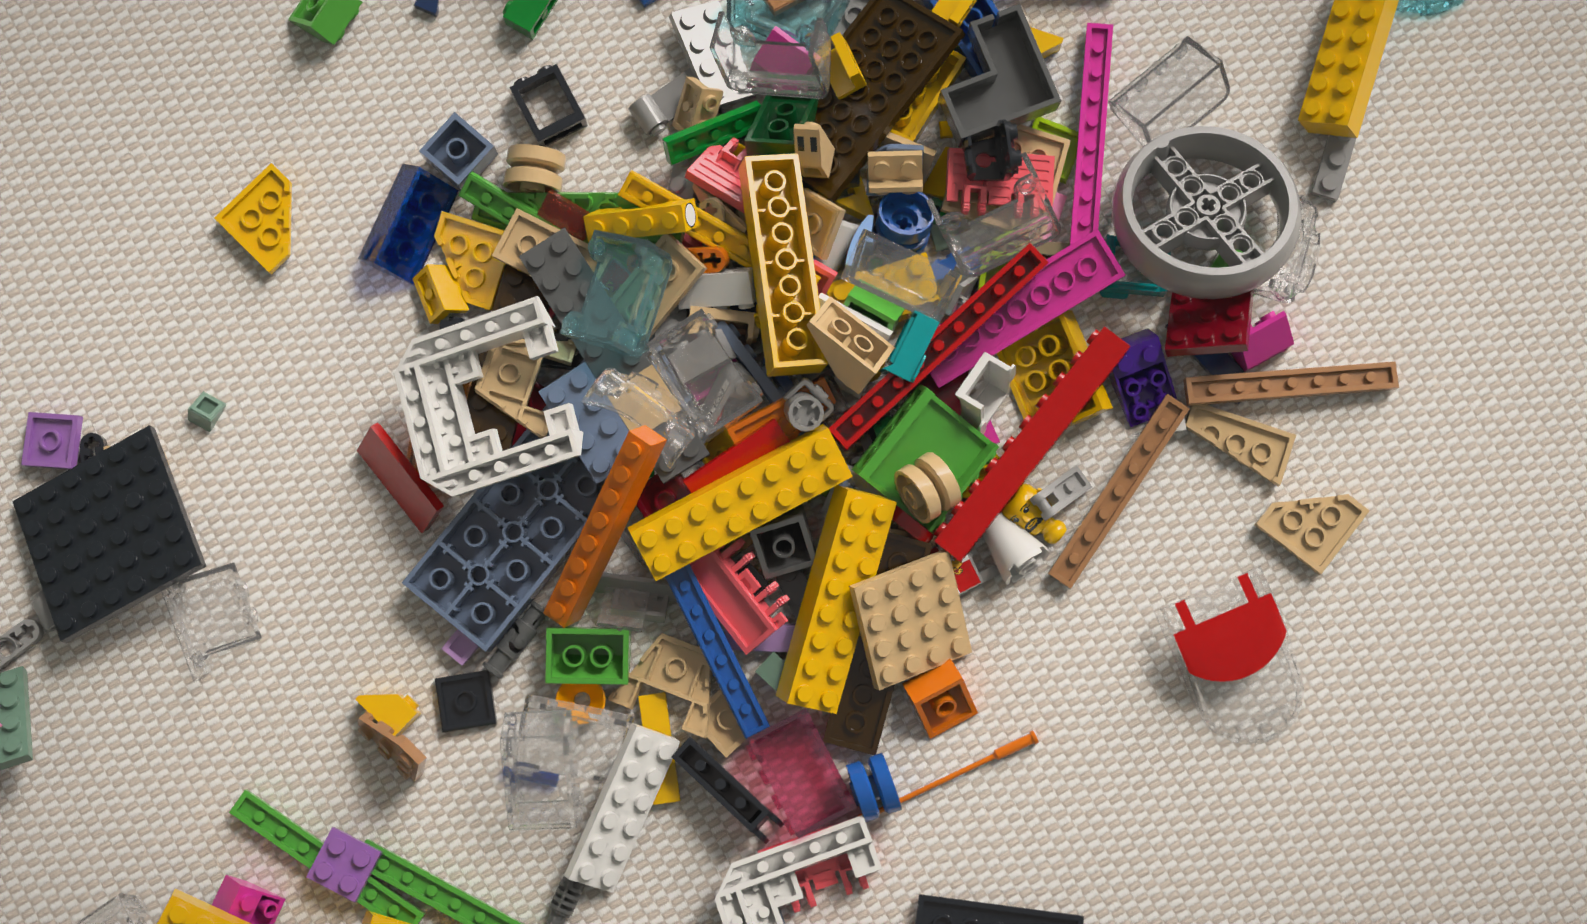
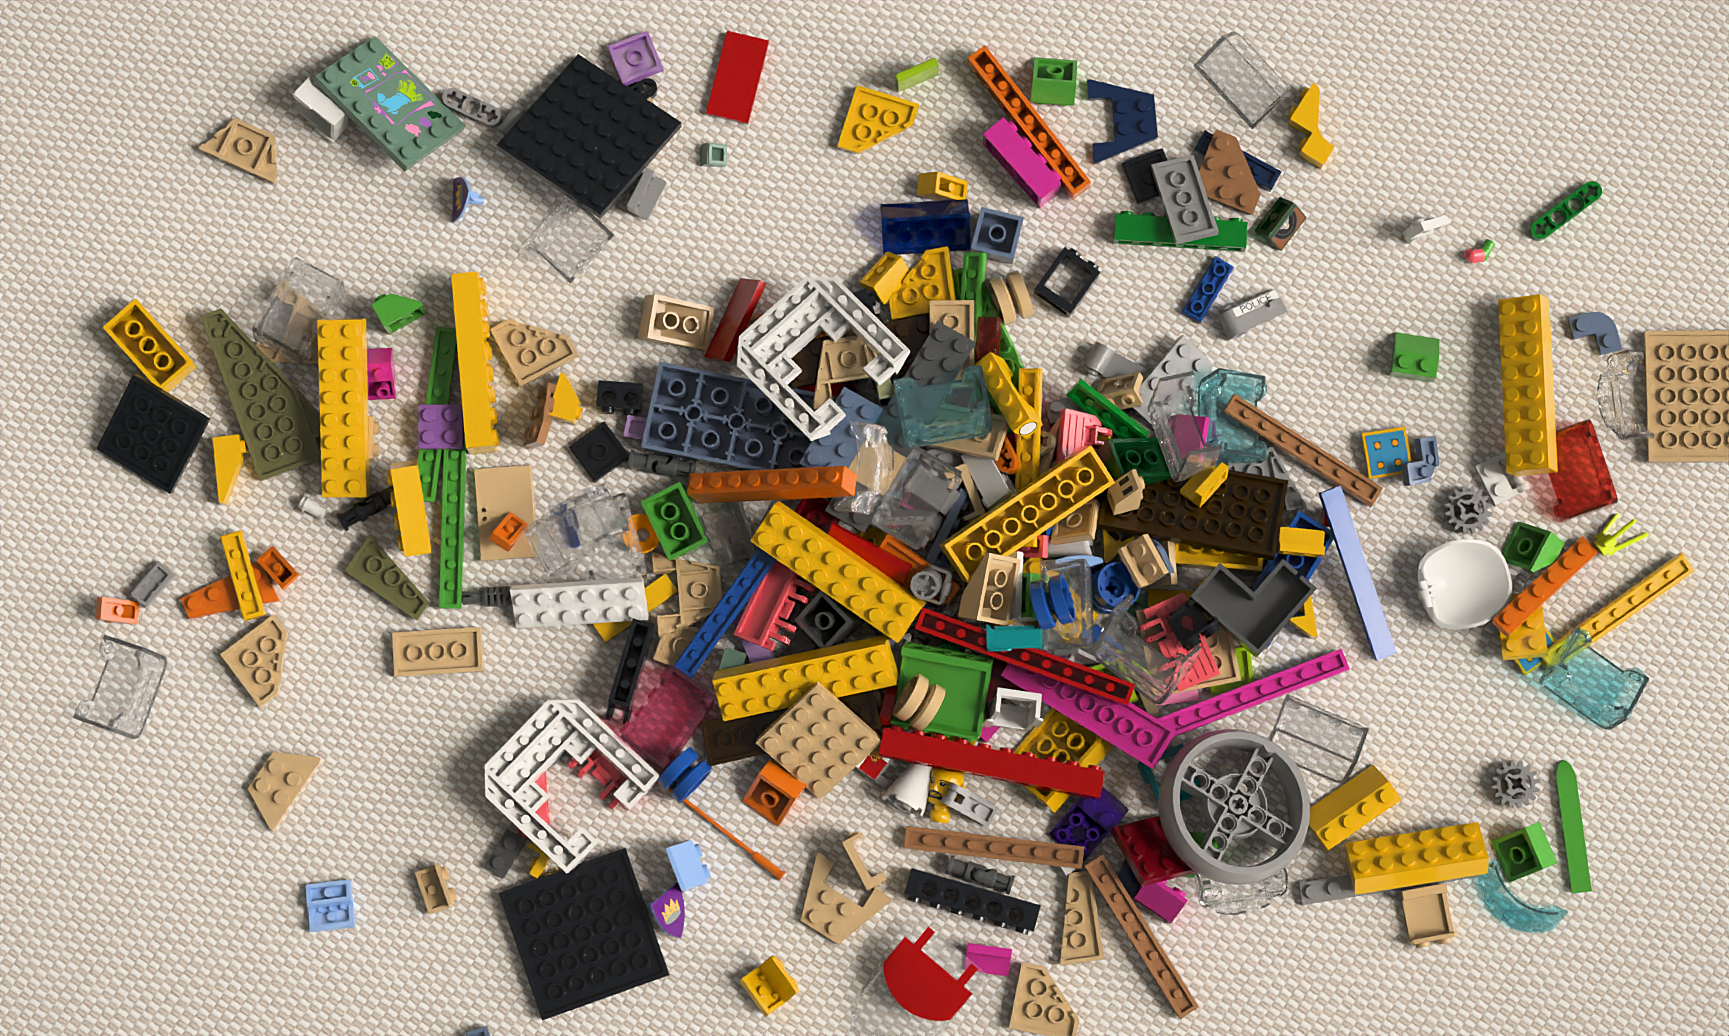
camera: 65 degrees right, 0 degrees up
(99, 708) = (462, 196): none -> shield
(135, 342) = (737, 77): none -> red tile
(187, 848) = (397, 311): none -> bright green slope
(209, 505) = (646, 194): none -> light grey bracket
(237, 147) = (916, 74): none -> lime tile
(291, 790) = (474, 364): none -> yellow brick
(314, 718) = (532, 350): none -> tan plate
(354, 57) = (1028, 121): none -> orange brick
(367, 545) = (675, 322): none -> tan slope
(373, 185) = (941, 186): none -> yellow slope
(393, 85) = (1022, 162): none -> dark pink brick
(411, 643) = (621, 391): none -> black brick
(478, 834) = (502, 492): none -> tan container
(501, 847) = (508, 531): none -> orange slope
(896, 283) = (1052, 602): none -> blue wheel
(974, 834) = (688, 866): none -> light blue slope
(1013, 880) = (669, 910): none -> dark purple shield
(1092, 644) = (868, 882): none -> tan panel
(1101, 701) = (831, 911): none -> tan wing
(1112, 589) = (1028, 910): none -> black brick
(1147, 512) = (990, 877): none -> dark grey piece
(1150, 810) = (770, 985): none -> yellow bracket
(1234, 556) = (990, 959): none -> dark pink panel
(1261, 94) = (1351, 807): none -> yellow slope
(1411, 78) = (1427, 915): none -> tan panel

